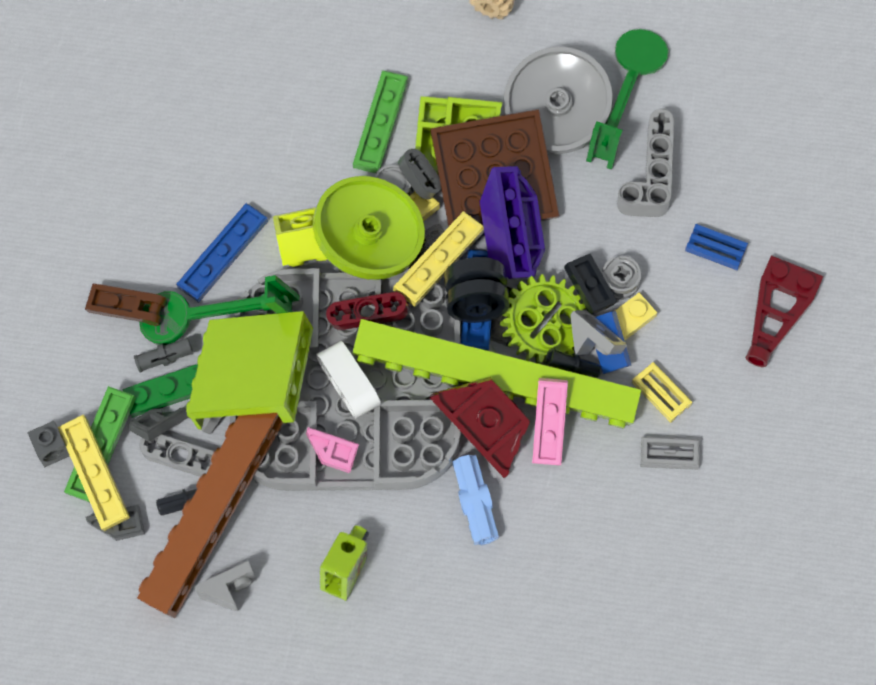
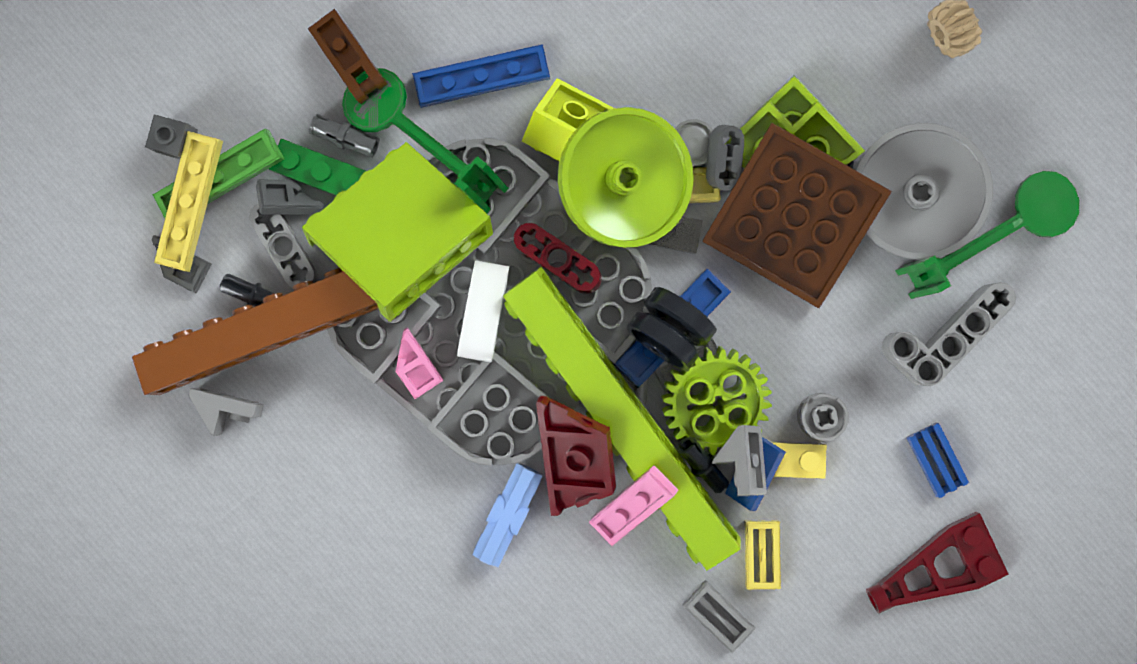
camera: 40 degrees right, 20 degrees up
(344, 563) = (329, 484): lime torso -> none
(380, 122) = (738, 65): bright green tile -> none
(441, 254) = (668, 261): light yellow tile -> none
(512, 222) = (764, 286): dark purple wedge -> none
(590, 284) = (786, 404): black plate -> none

